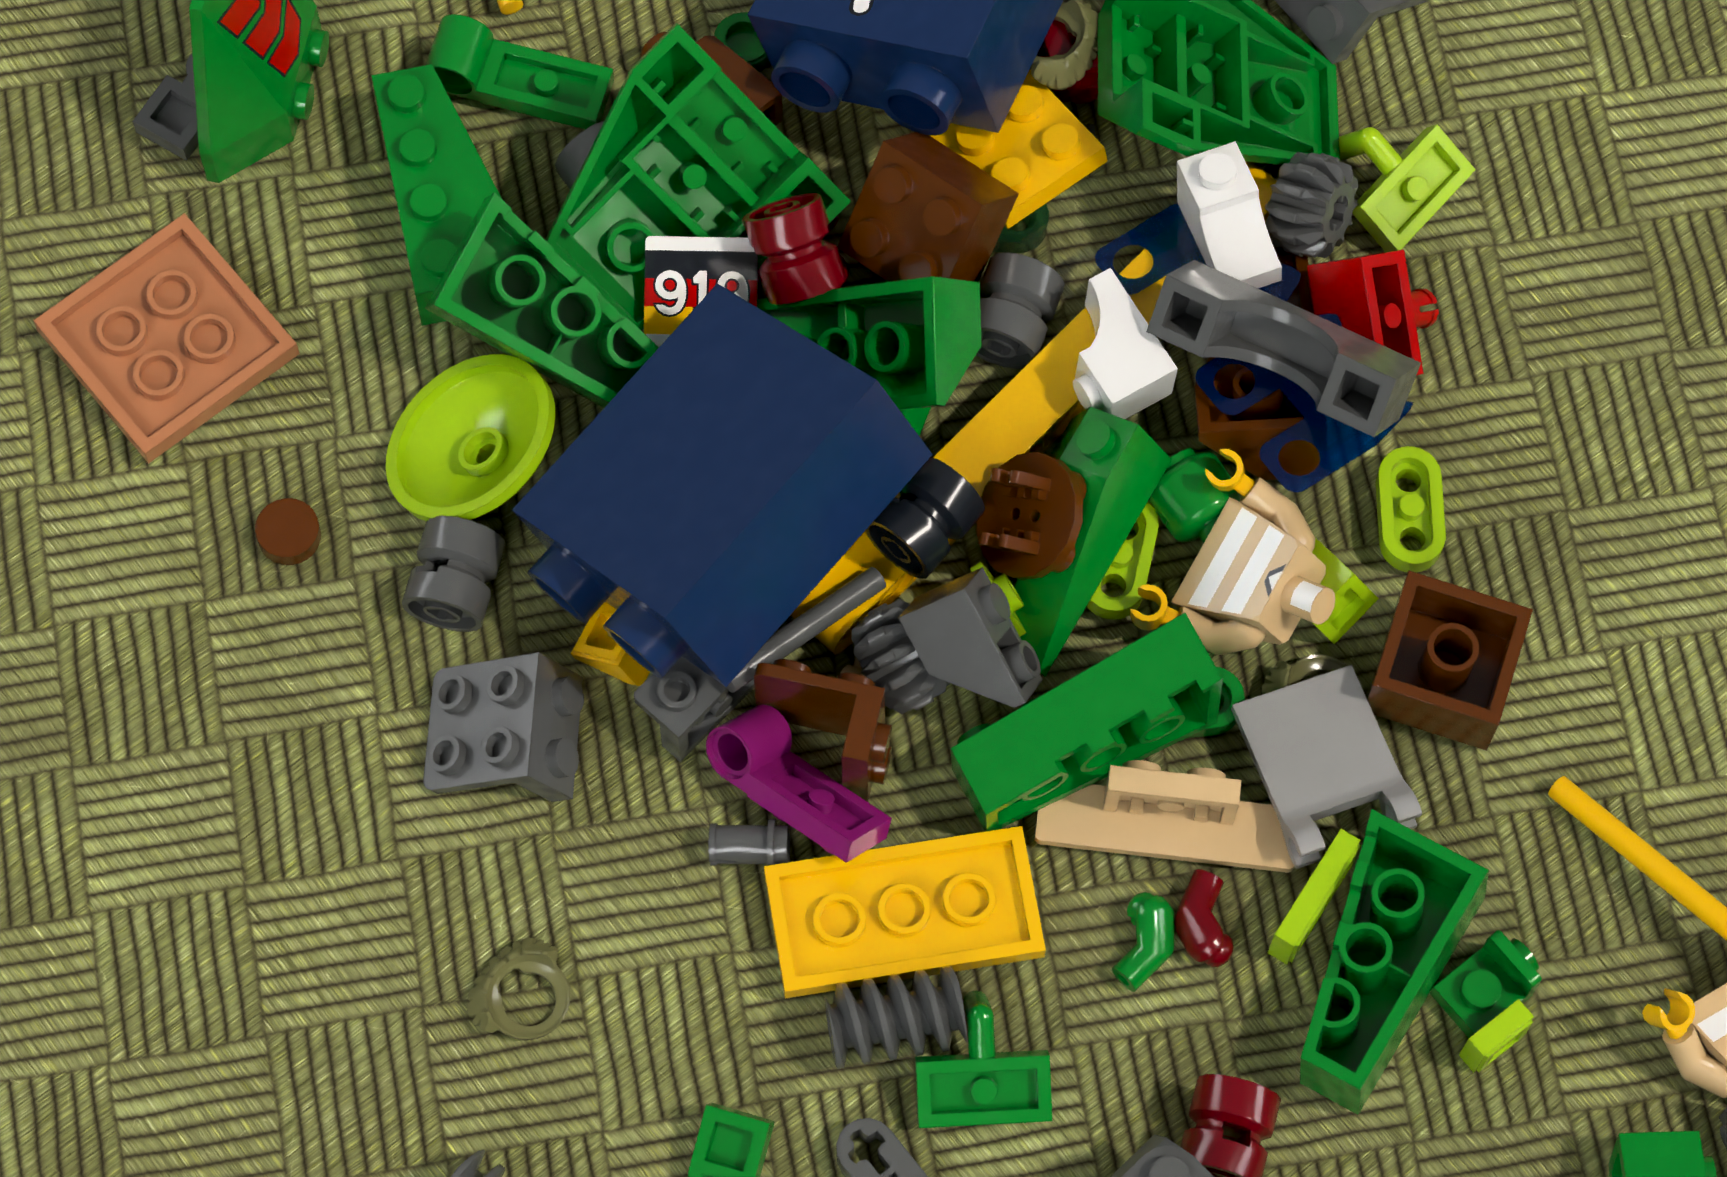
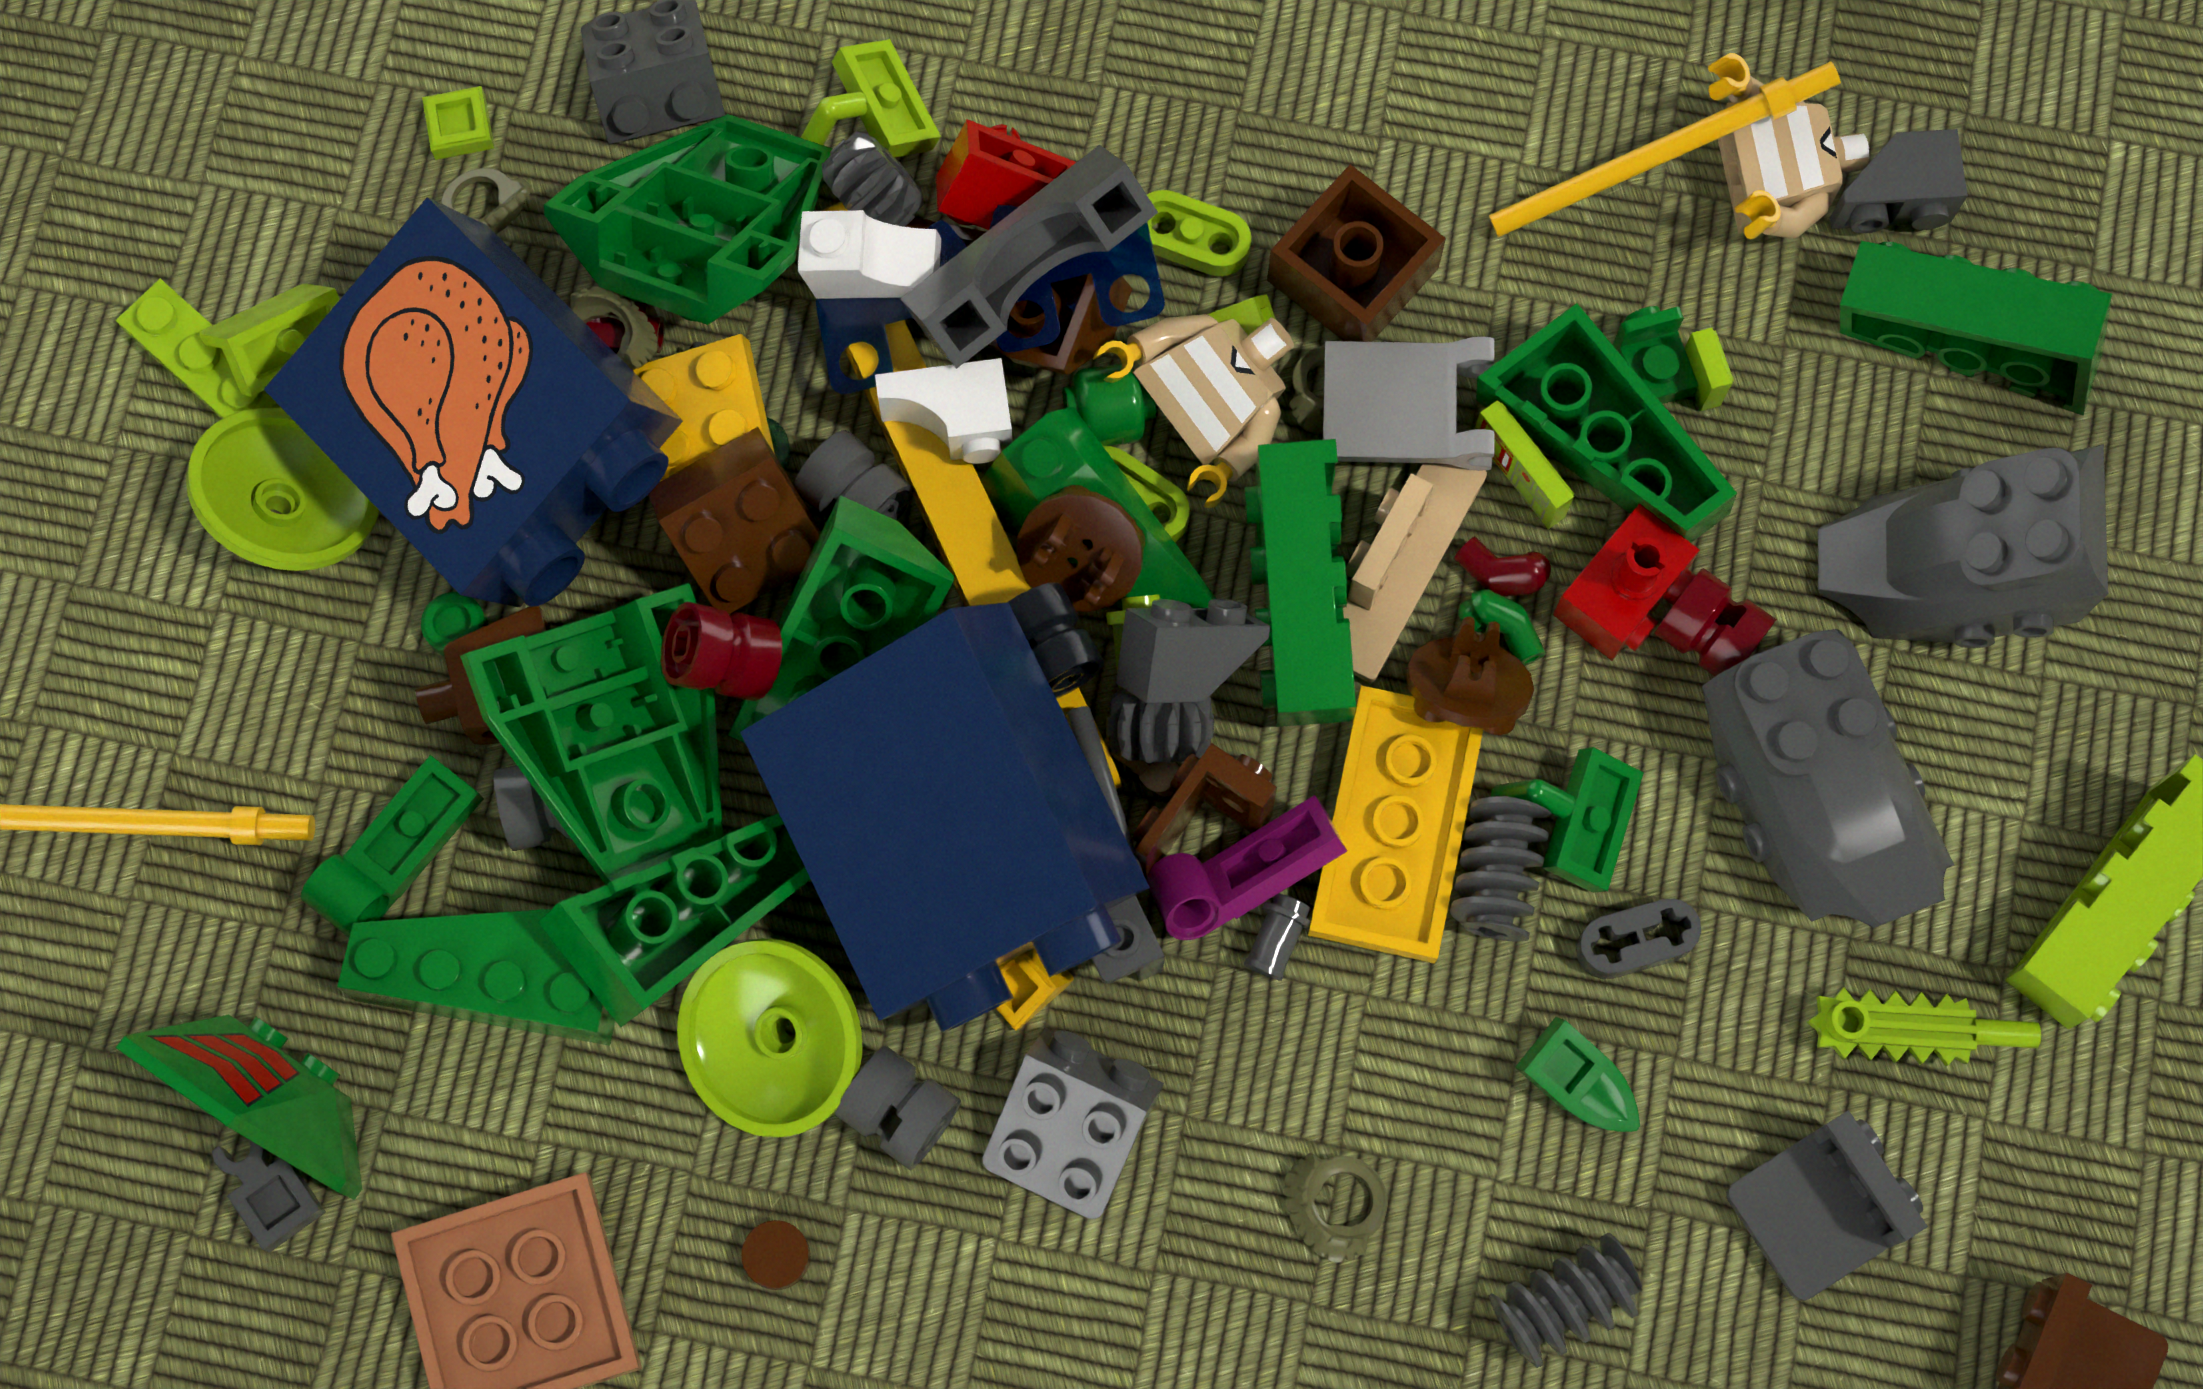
camera: 65 degrees left, 5 degrees up
(686, 270) = (707, 762): sticker -> none
(1067, 922) = (1470, 681): none -> reddish brown plate
(1236, 1034) = (1626, 583): none -> red brick

